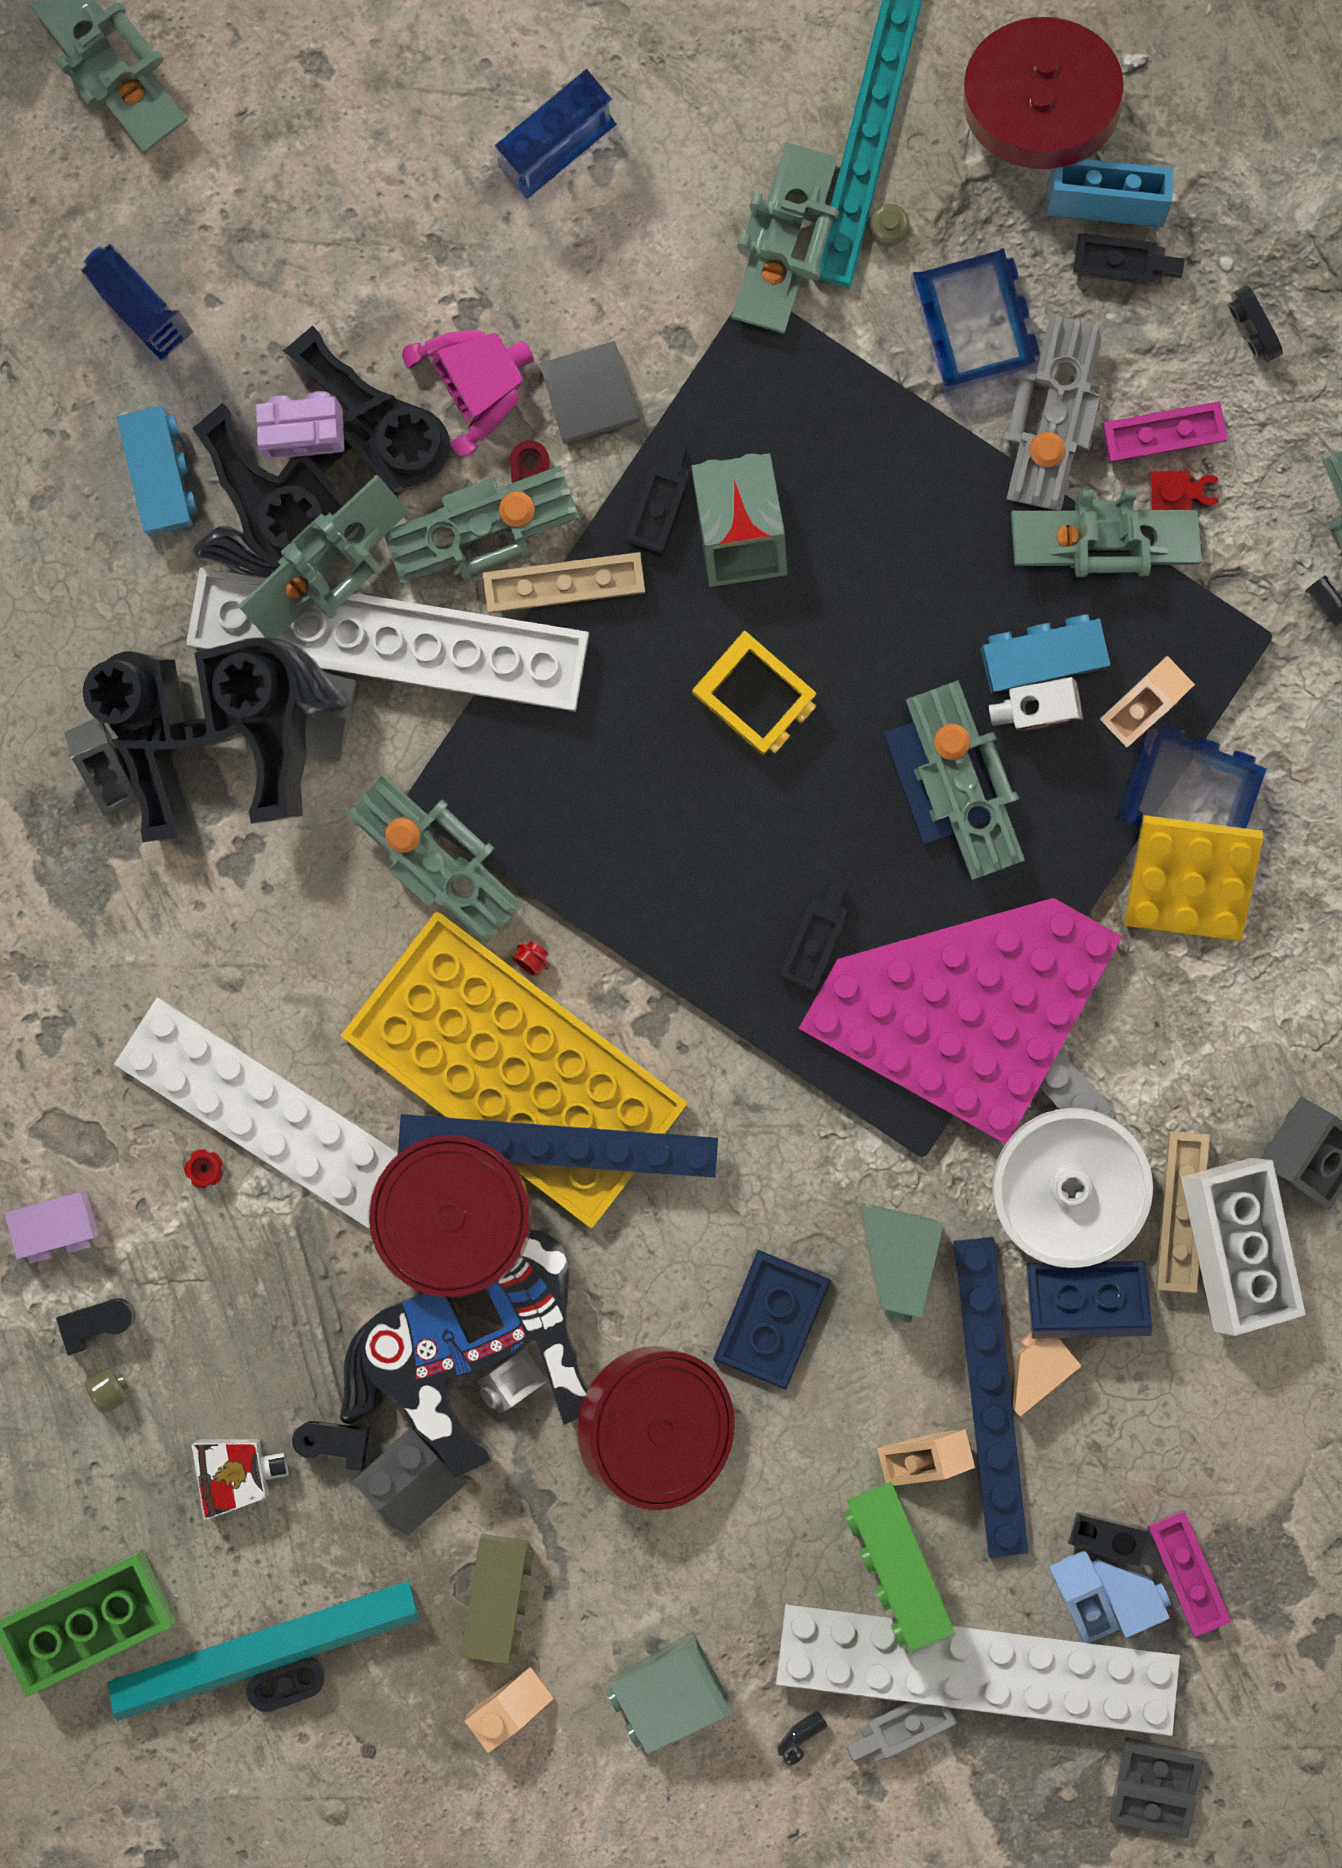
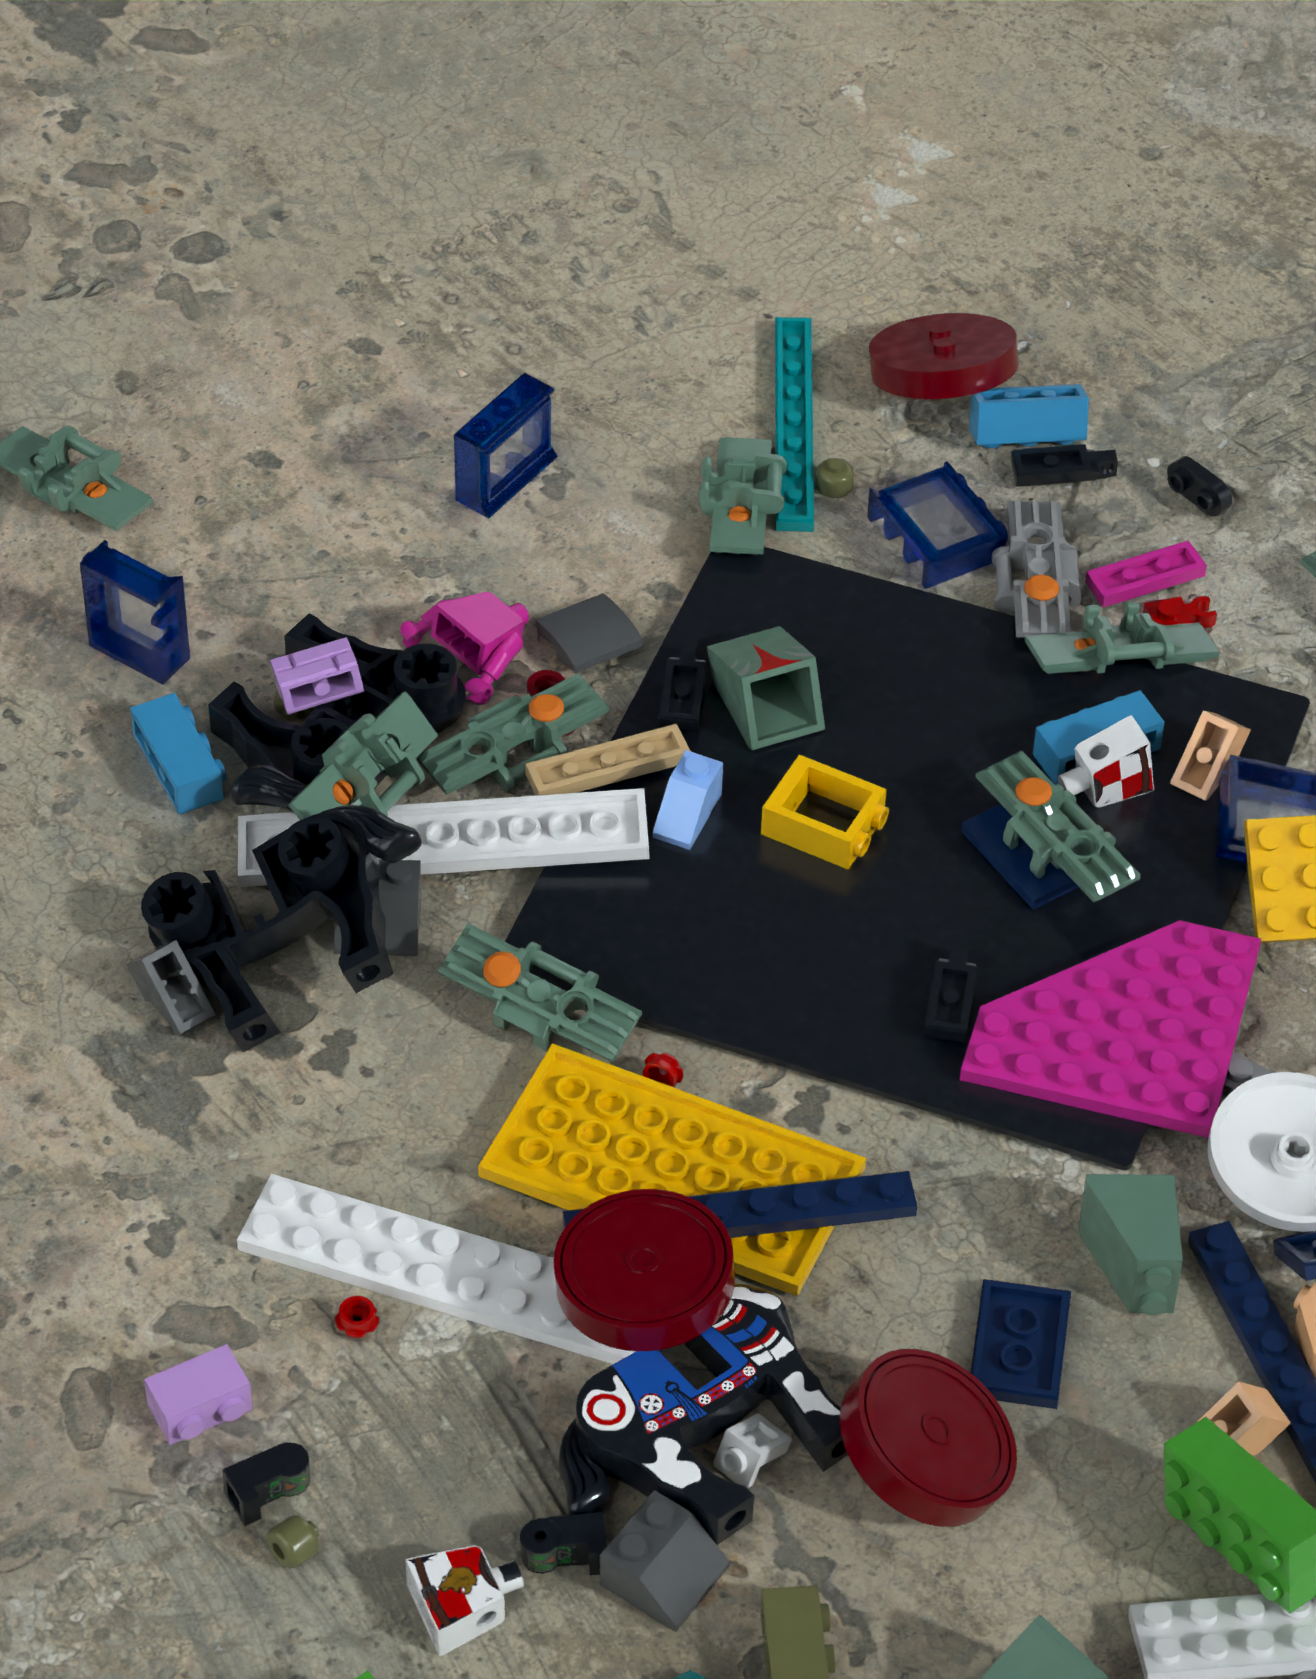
camera: 15 degrees left, 40 degrees down
(627, 652) = (689, 799): none -> light blue slope

